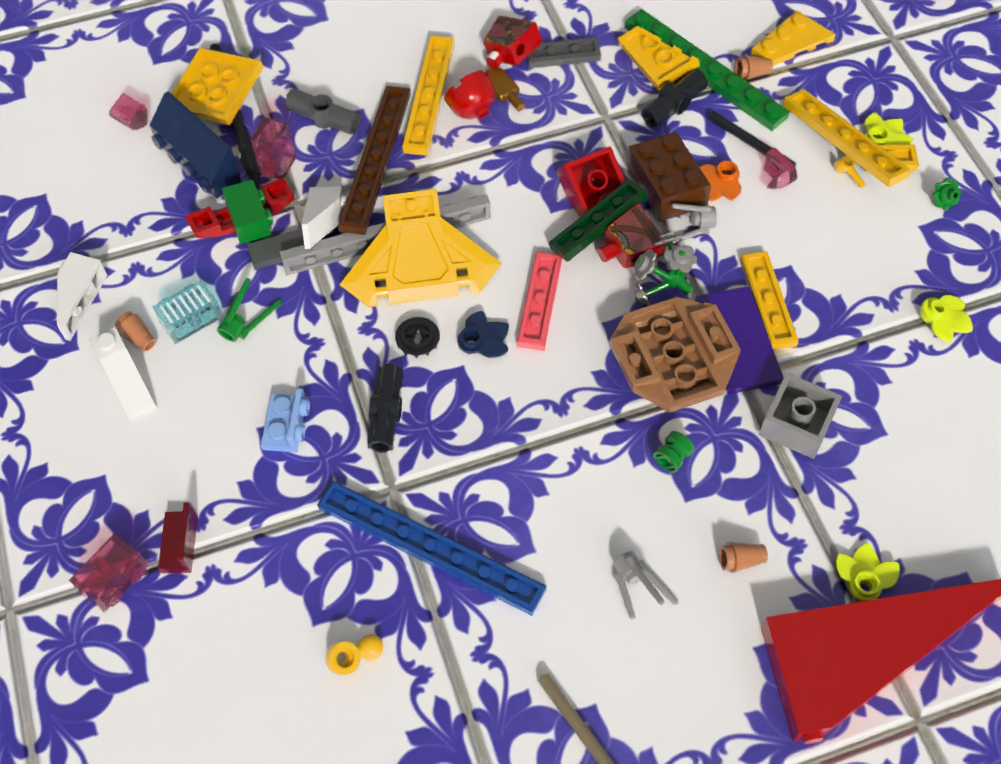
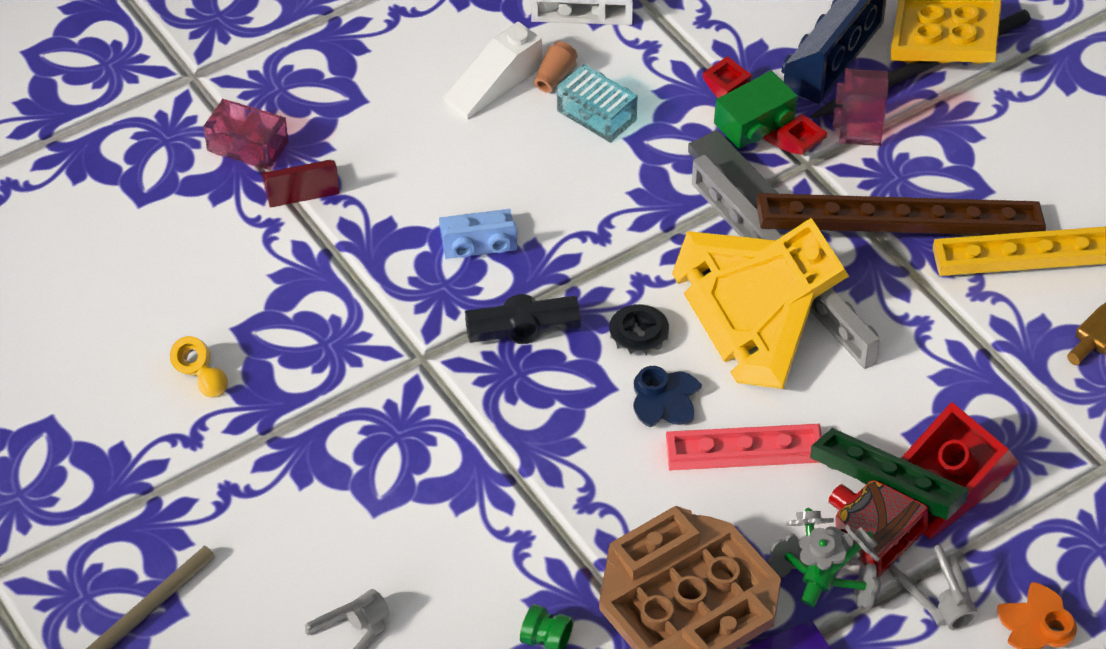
camera: 75 degrees right, 10 degrees down
(232, 324) = (594, 145): green plant -> none
(321, 213) = (772, 173): white slope -> none
(323, 111) = (958, 146): dark grey piece -> none
(433, 548) = (349, 414): blue tile -> none
(472, 97) = (1051, 290): red cylinder -> none
(668, 175) = (1008, 545): reddish brown brick -> none

